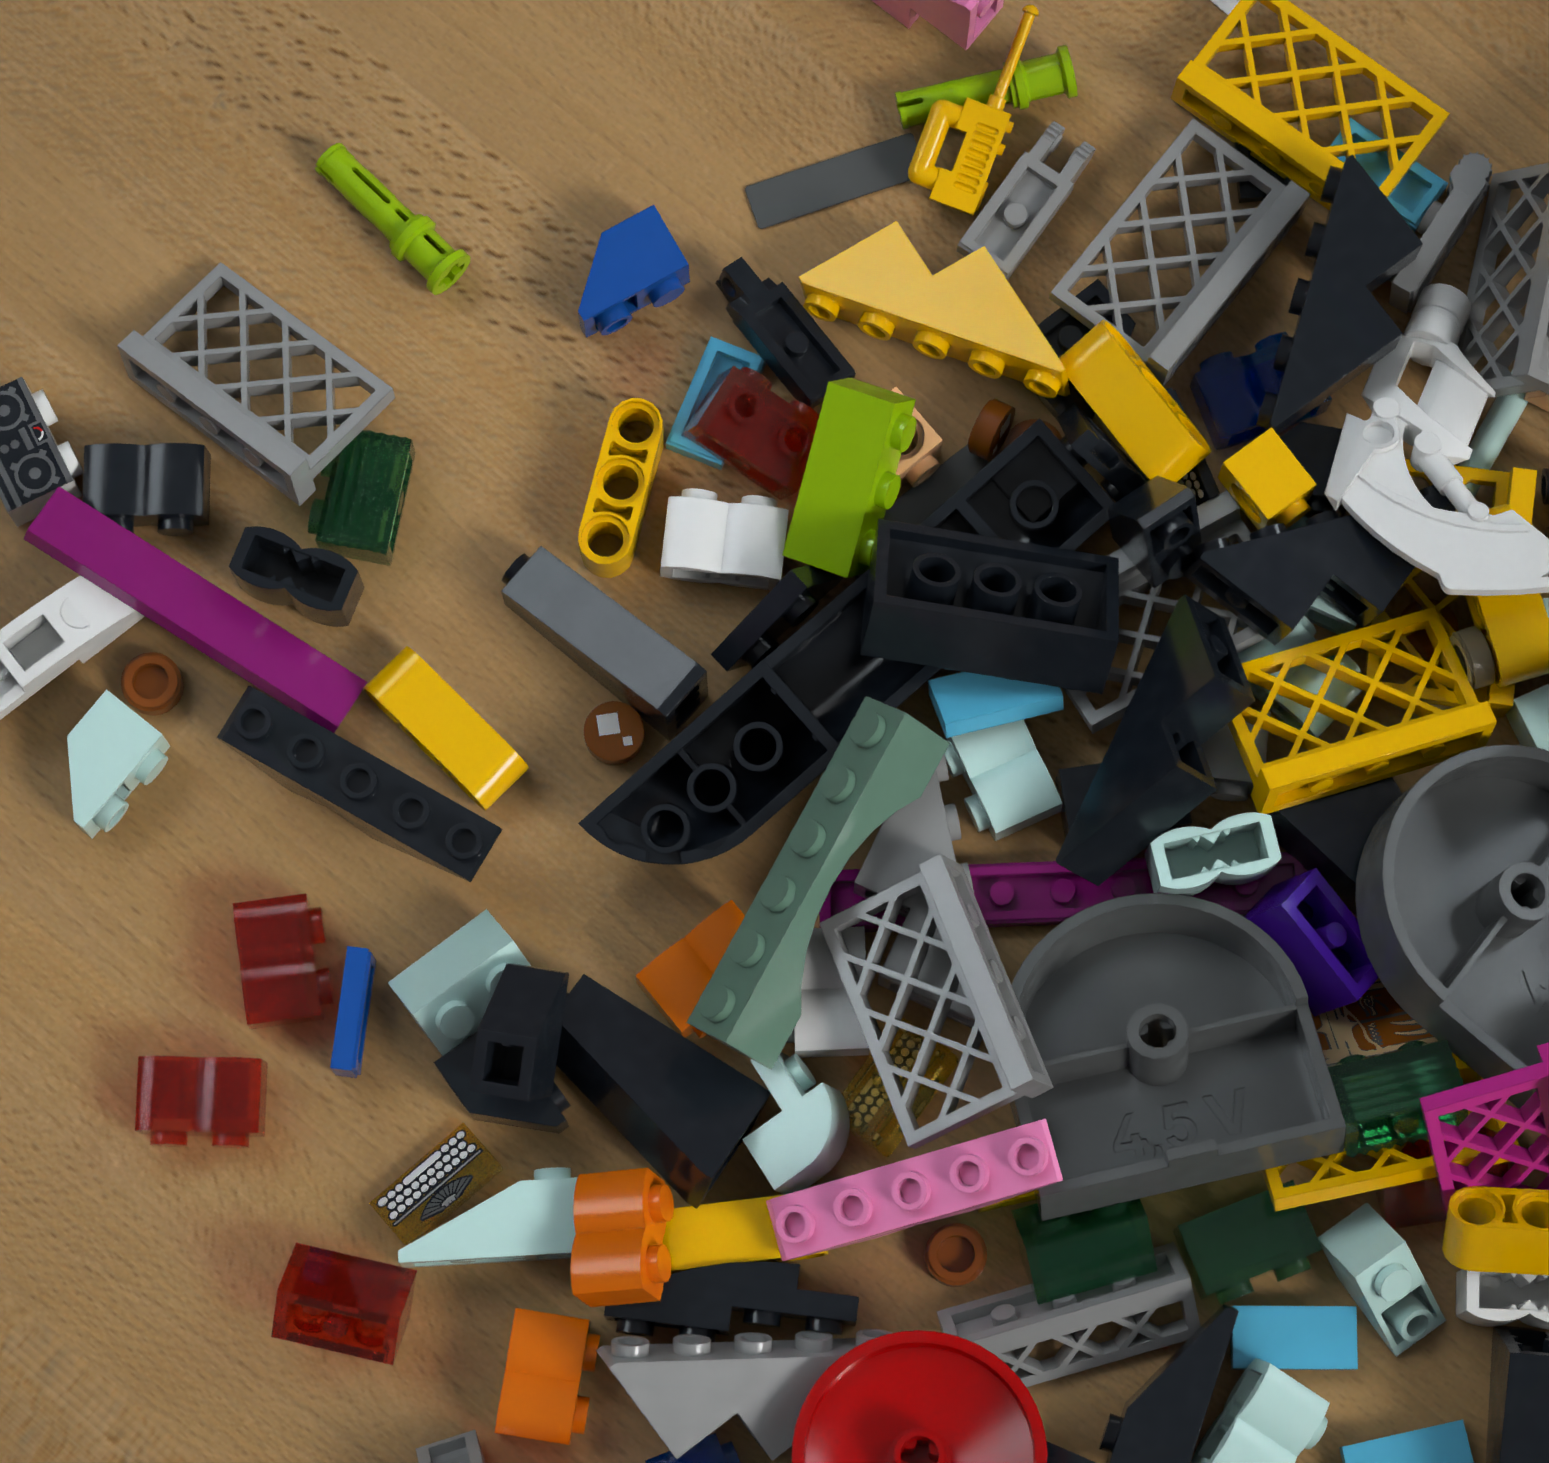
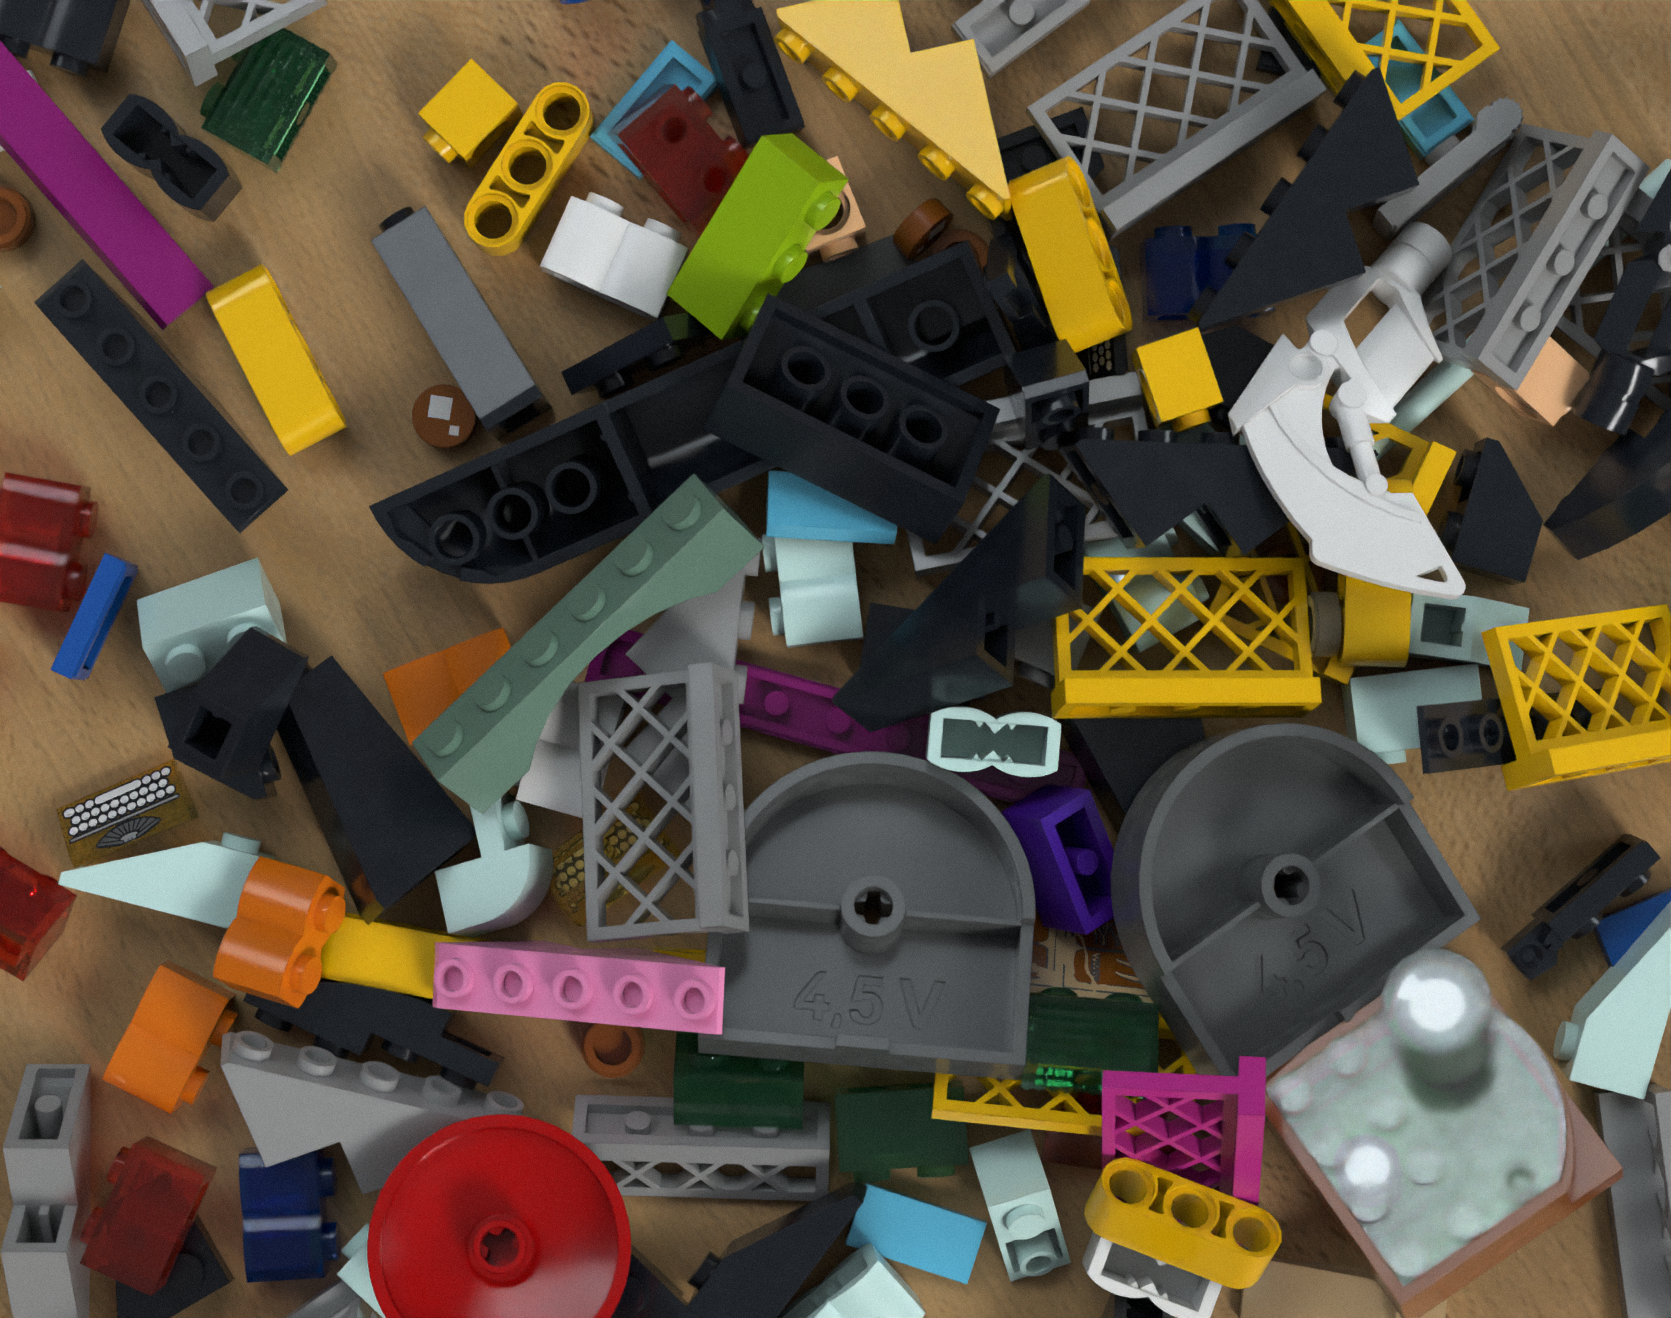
camera: 15 degrees right, 10 degrees up
(551, 457) = (468, 115): none -> yellow brick

